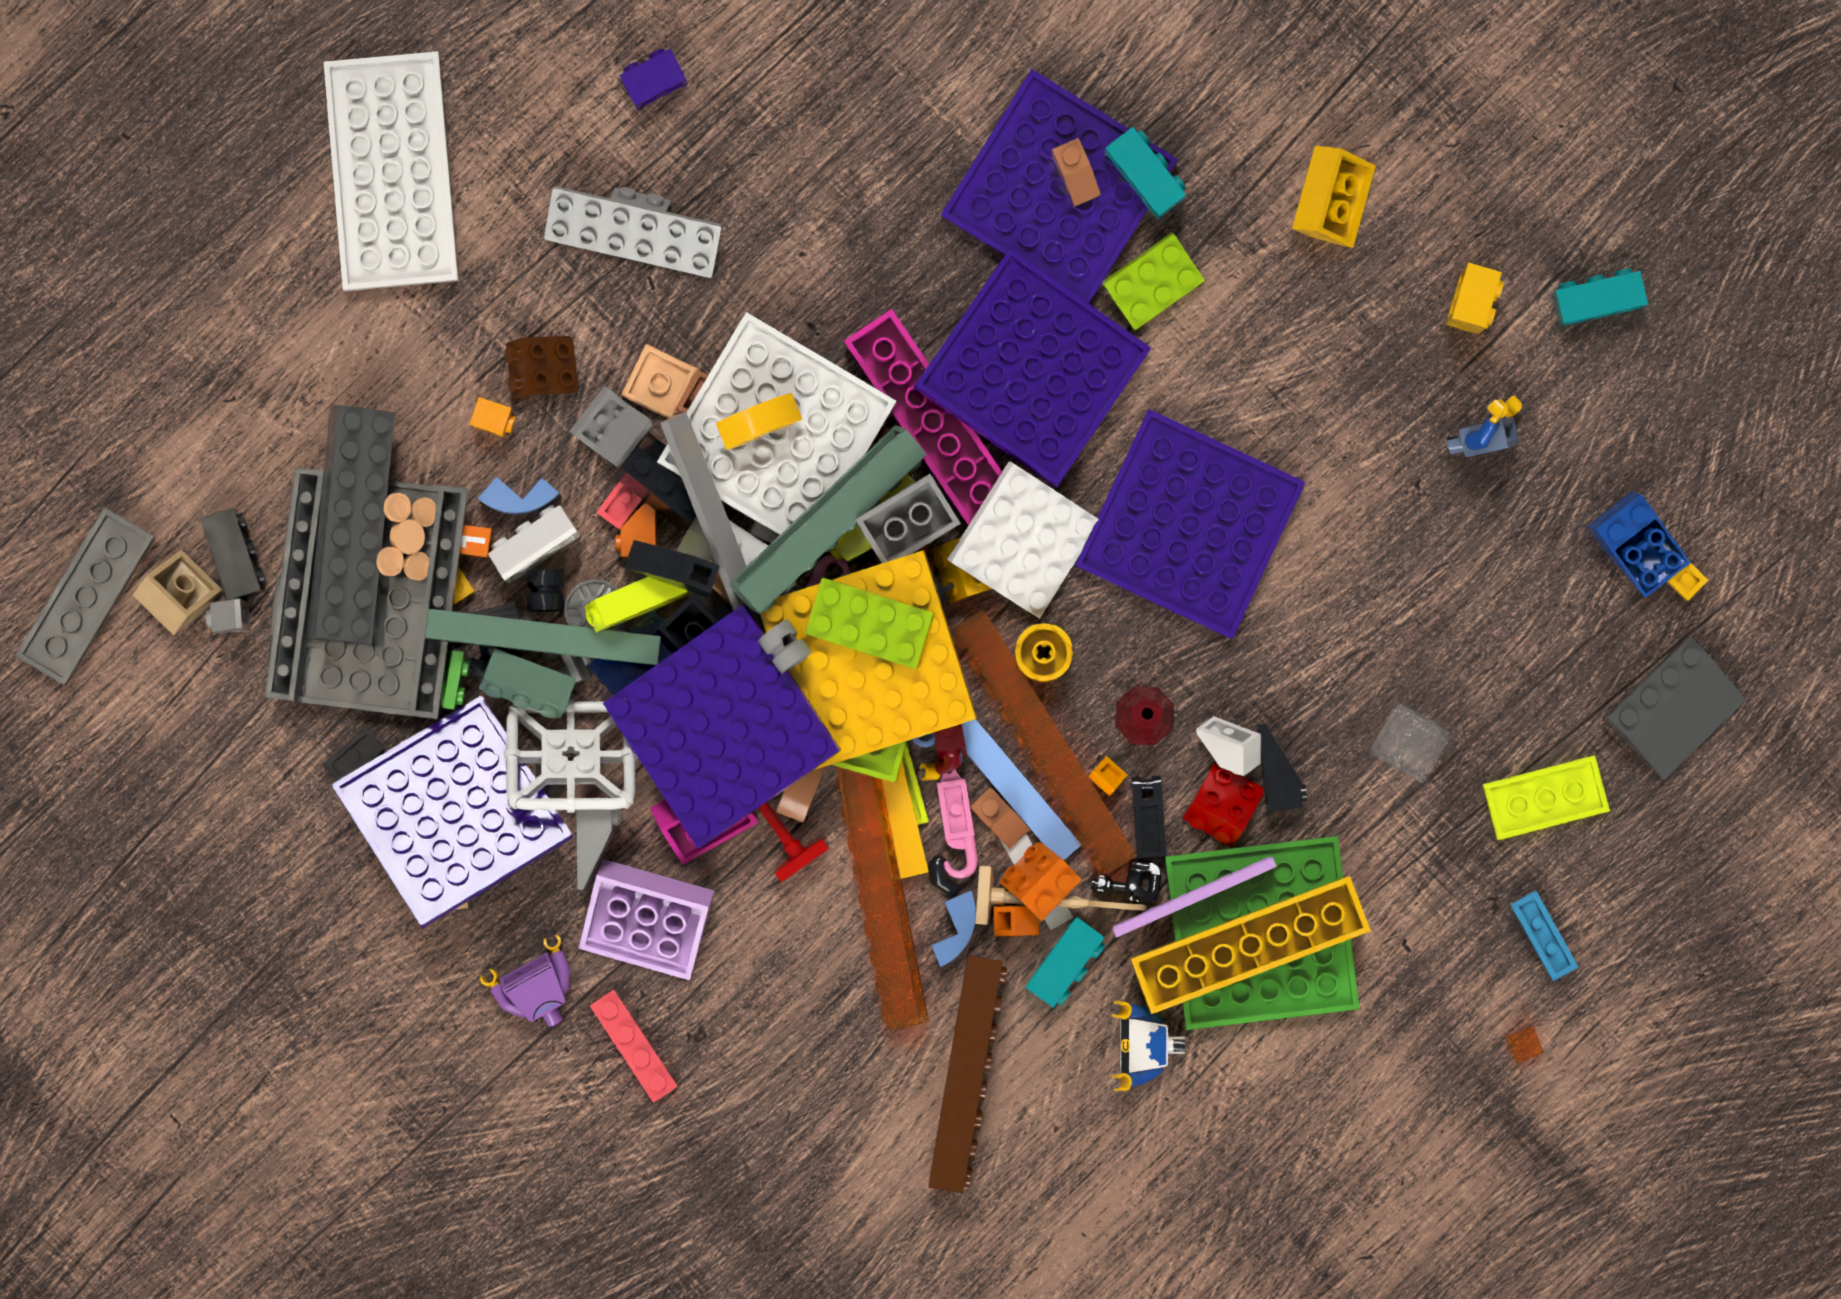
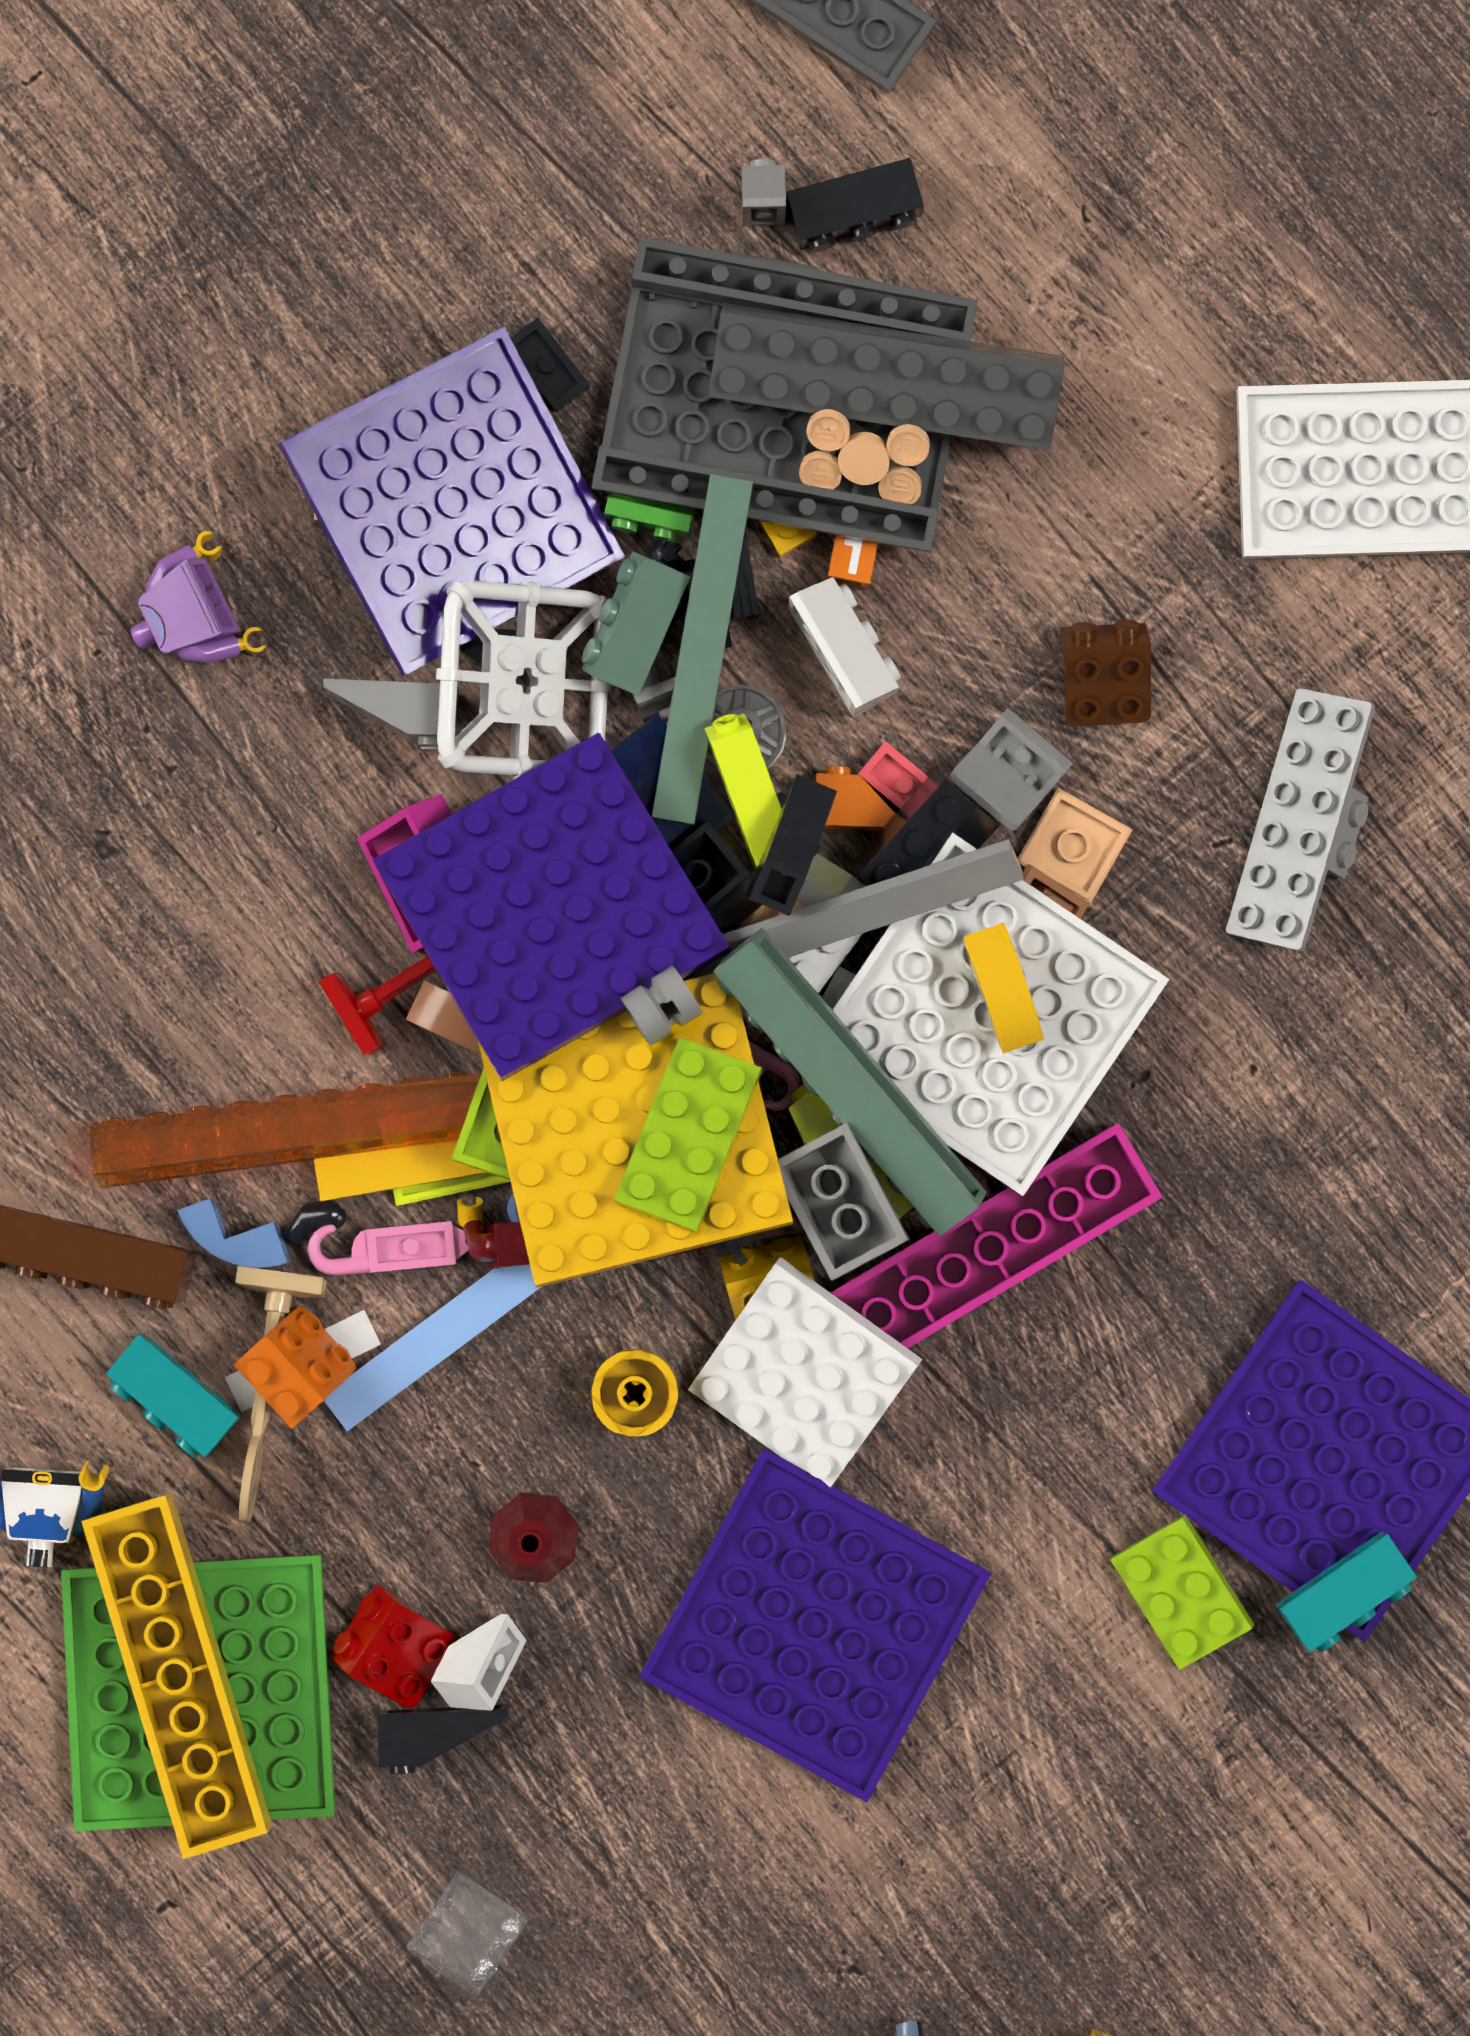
camera: 90 degrees right, 0 degrees up
(176, 592) = (805, 120): tan slope -> none
(493, 418) = (1034, 596): light orange brick -> none
(503, 499) = (913, 606): medium blue brick -> none
(545, 590) = (774, 659): black wheel -> none
(633, 1045) = (95, 751): coral plate -> none
(646, 919) = (279, 779): lavender slope -> none
(1000, 818) = (395, 1312): nougat slope -> none
(1015, 921) = (237, 1324): orange brick -> none
(1032, 367) = (1061, 1403): dark purple plate -> none
(1044, 742) = (501, 1386): clear orange brick -> none
(1076, 172) = (1353, 1486): nougat slope -> none
(1107, 775) = (446, 1477): light orange plate -> none
(1131, 889) = (276, 1502): black piece -> none
(1149, 818) = (380, 1534): black plate -> none
(1193, 896) = (256, 1594): lavender tile -> none
(1334, 196) = (1296, 1873): yellow slope -> none

